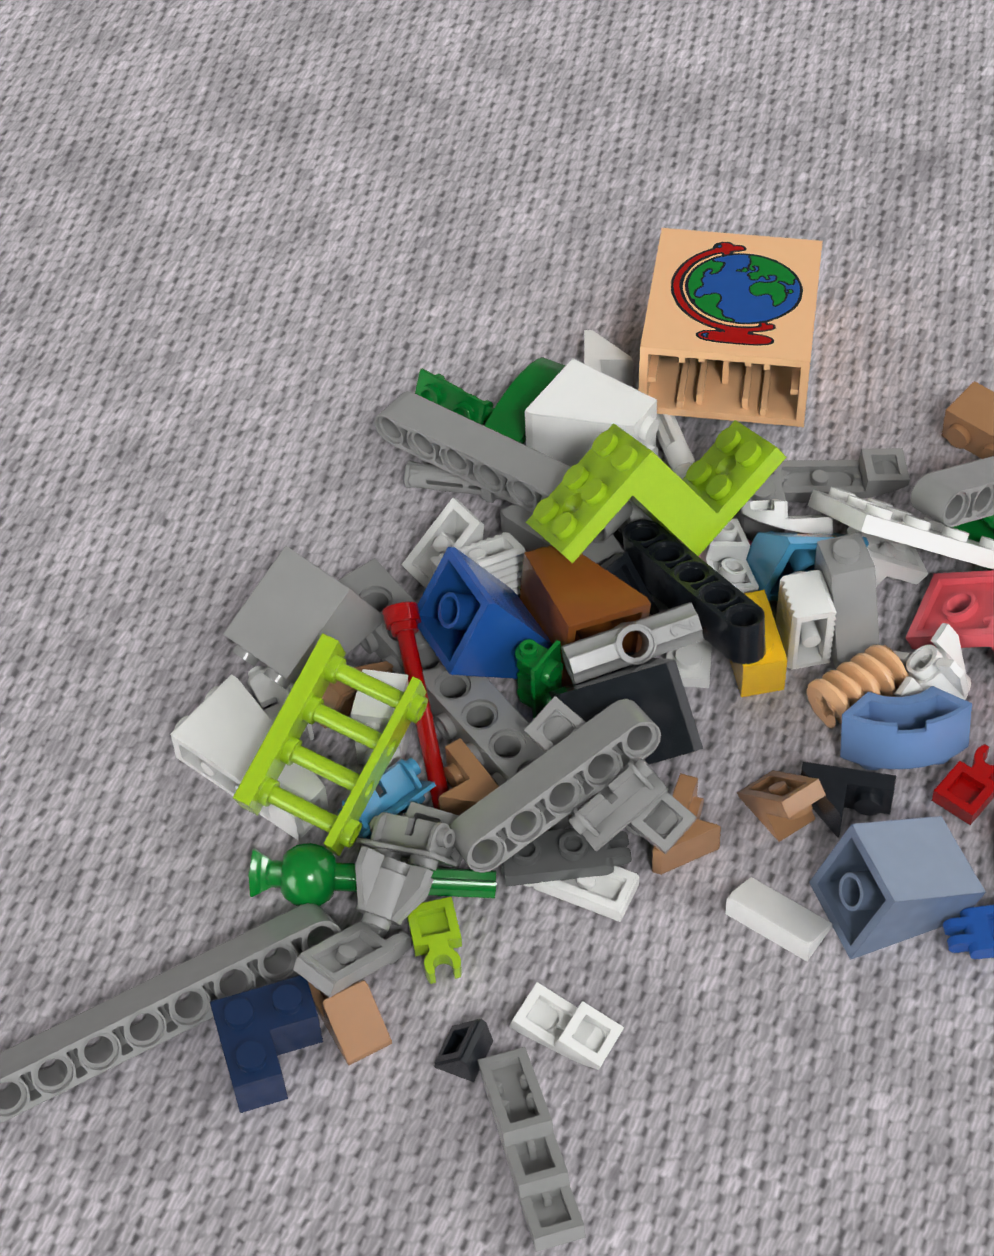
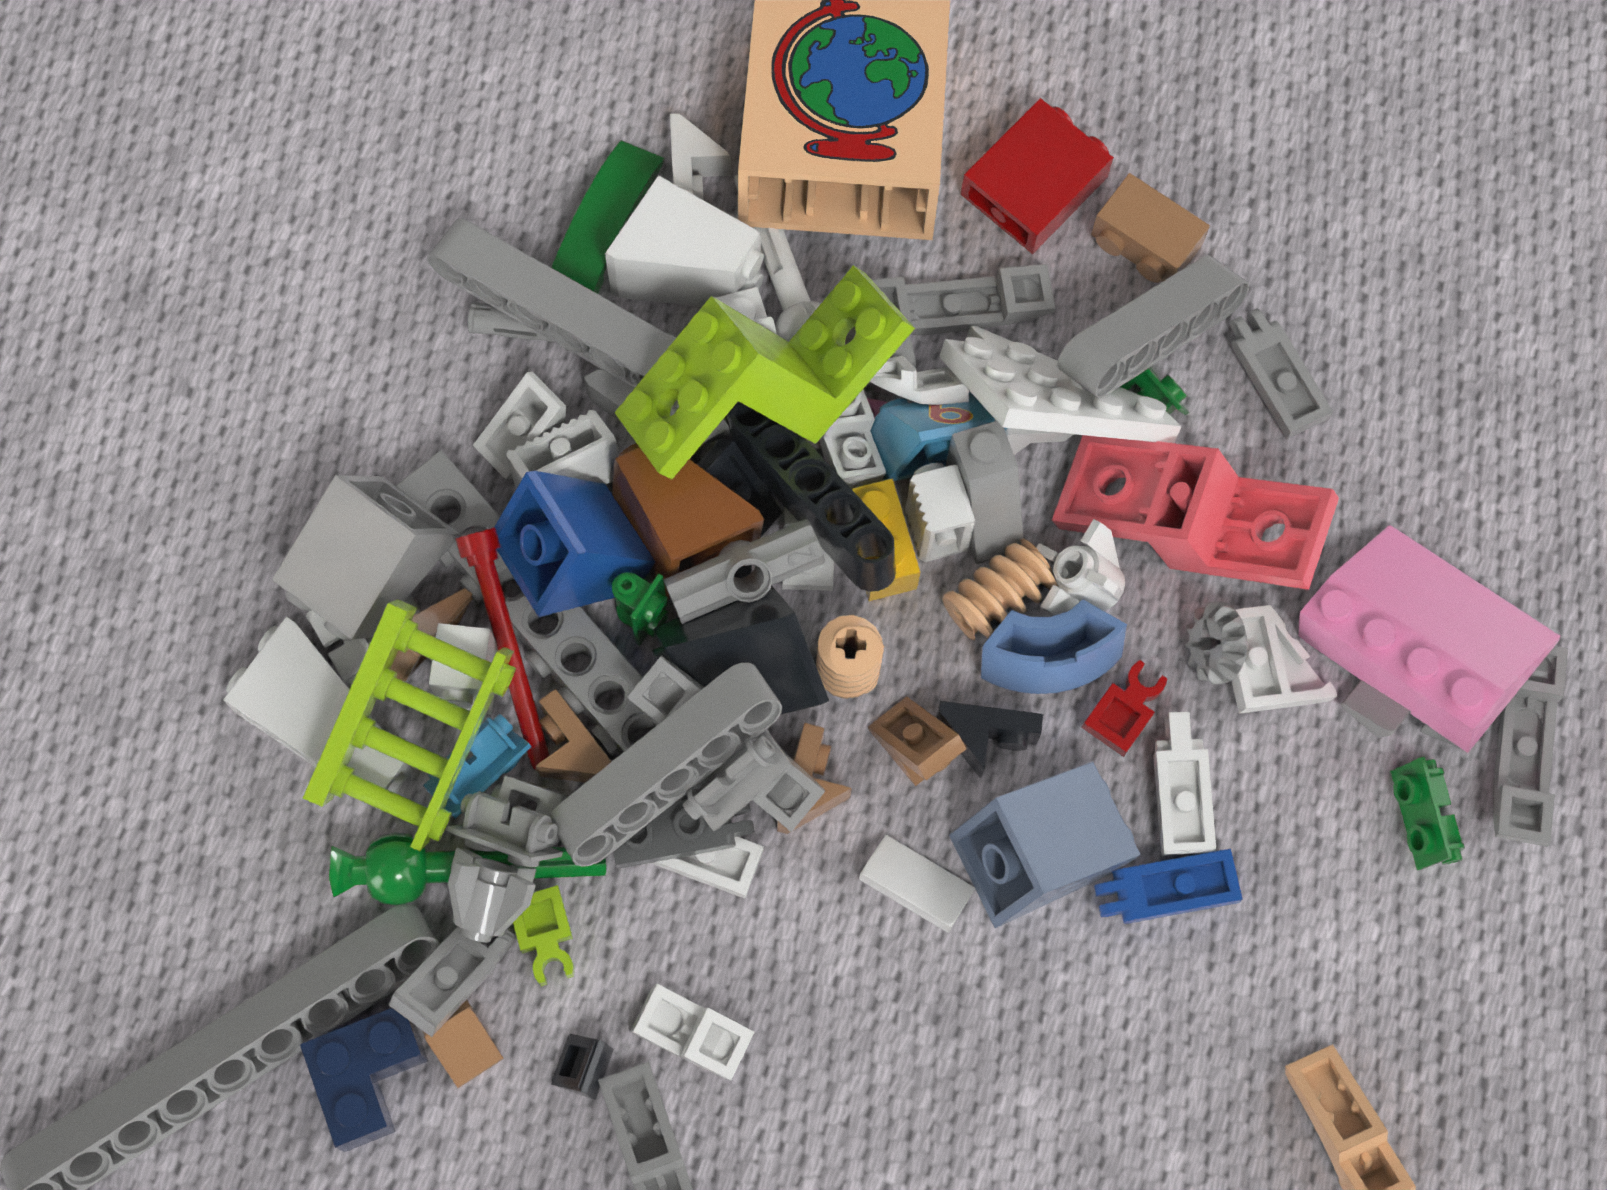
camera: 10 degrees left, 20 degrees up
(450, 396) = (505, 206): green hinge -> none
(723, 723) = (853, 638): none -> light nougat piece
(894, 387) = (1037, 175): none -> red brick

